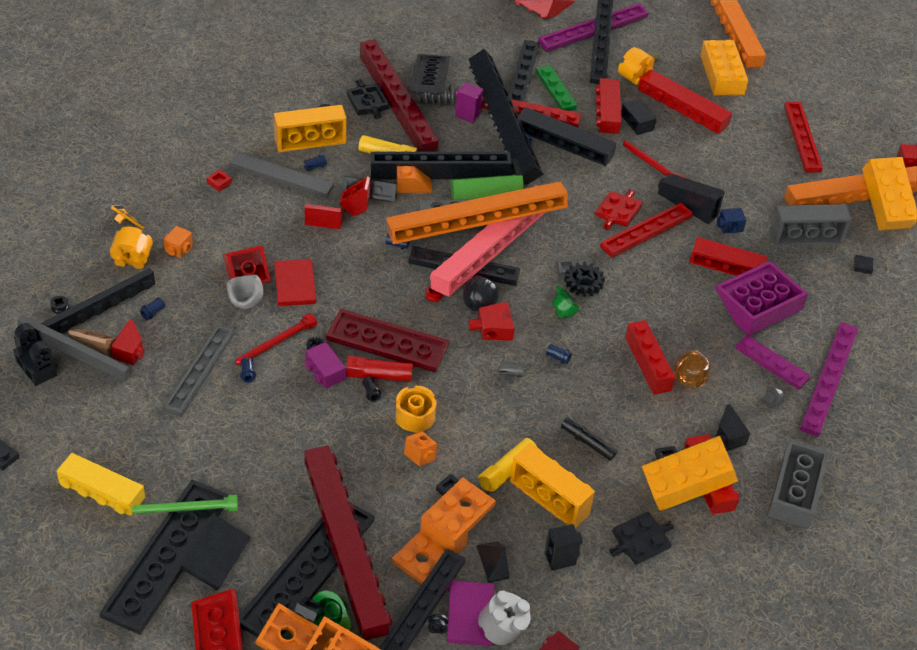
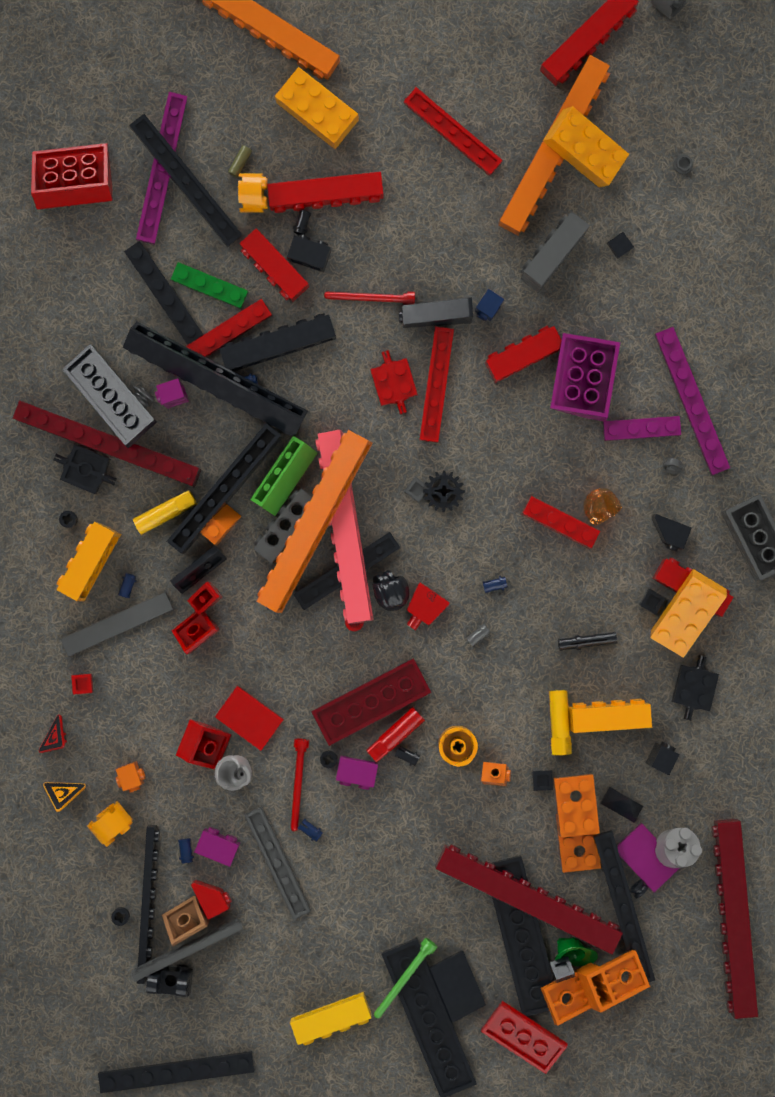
camera: 35 degrees left, 40 degrees up
(164, 187) = (55, 737): none -> piece
(175, 322) = (217, 846): none -> magenta brick
(564, 304) = (455, 531): green piece -> none
(653, 103) = (302, 222): none -> black pin

